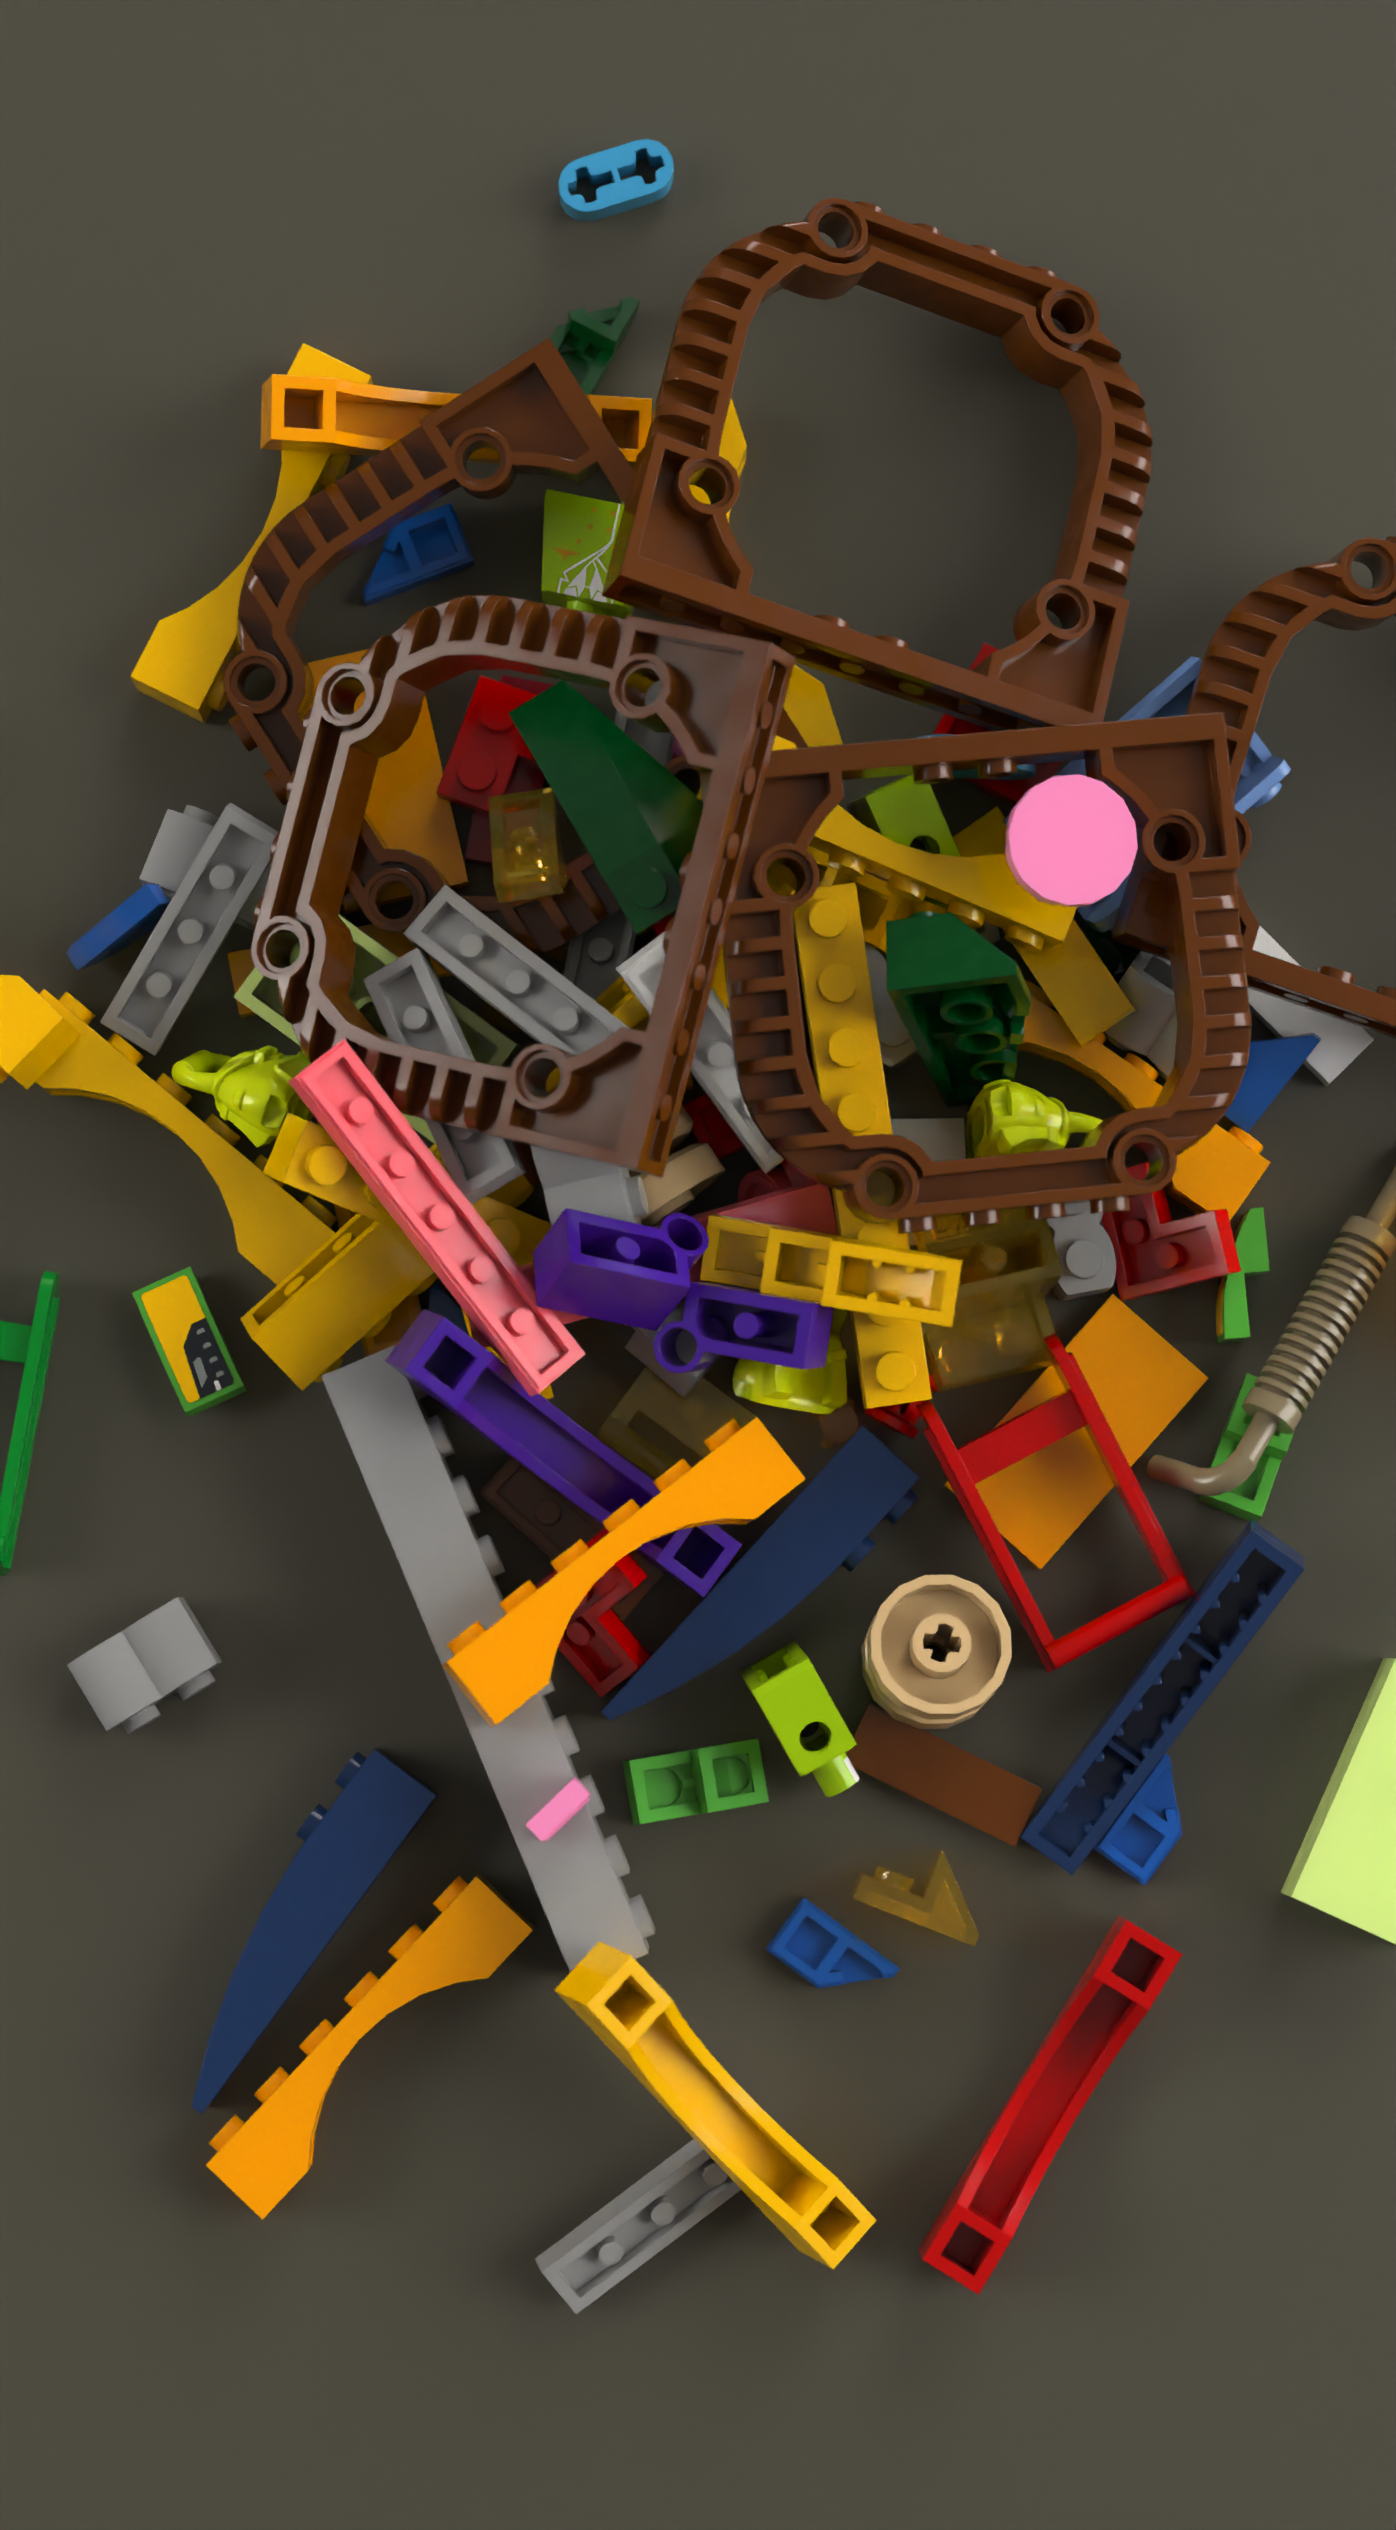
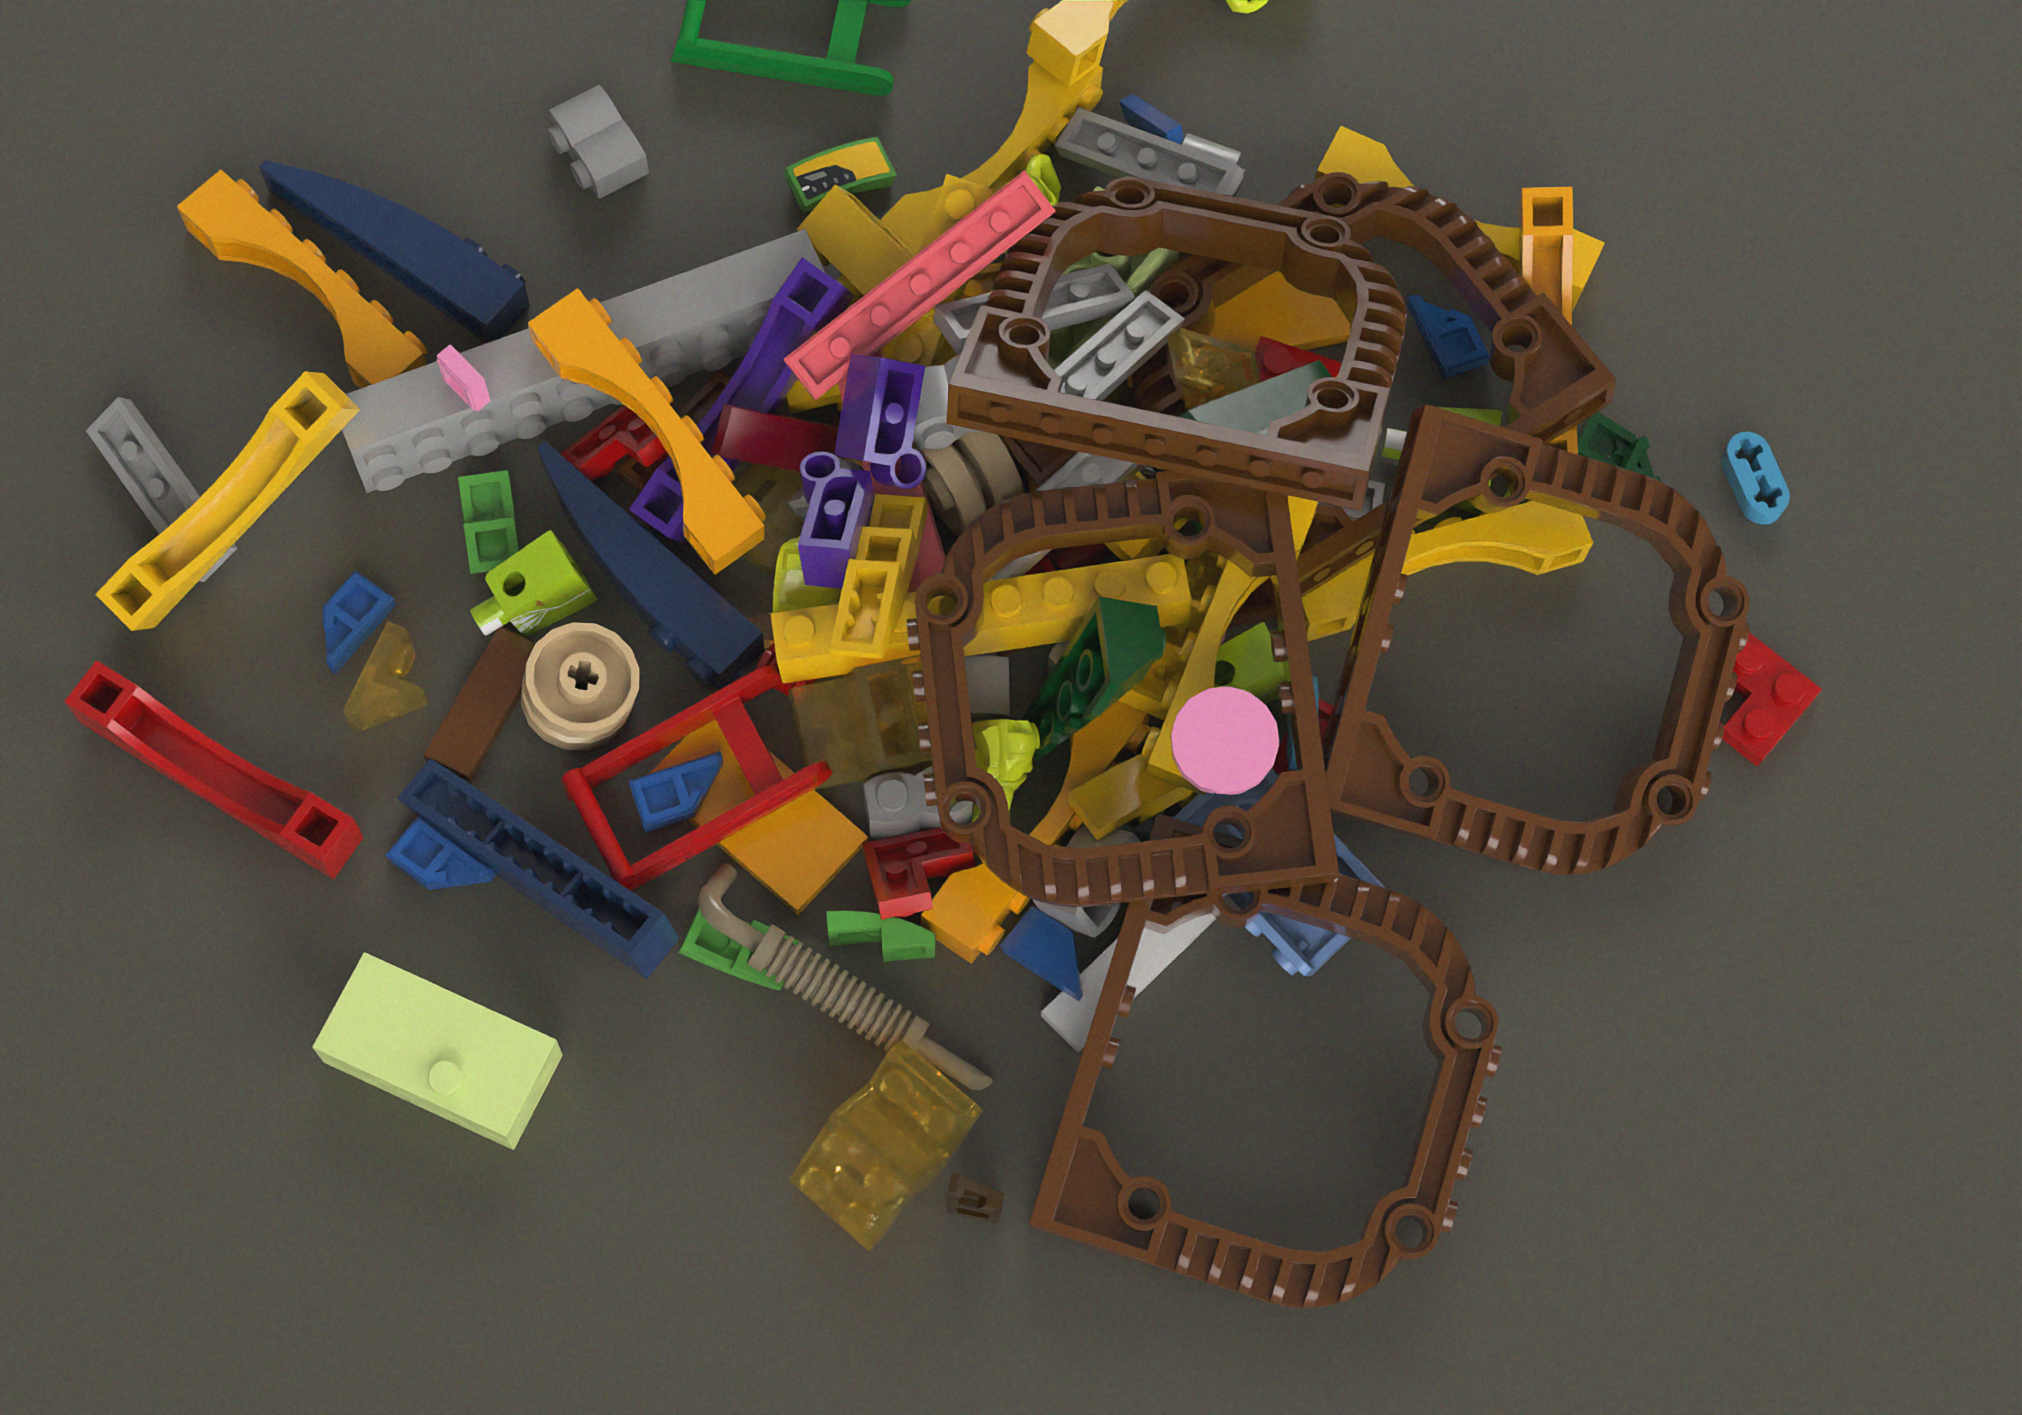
camera: 90 degrees right, 15 degrees down
(607, 1404) = (770, 437): none -> dark red tile
(921, 184) = (1774, 701): none -> red plate
(1064, 1531) = (674, 791): none -> blue tile

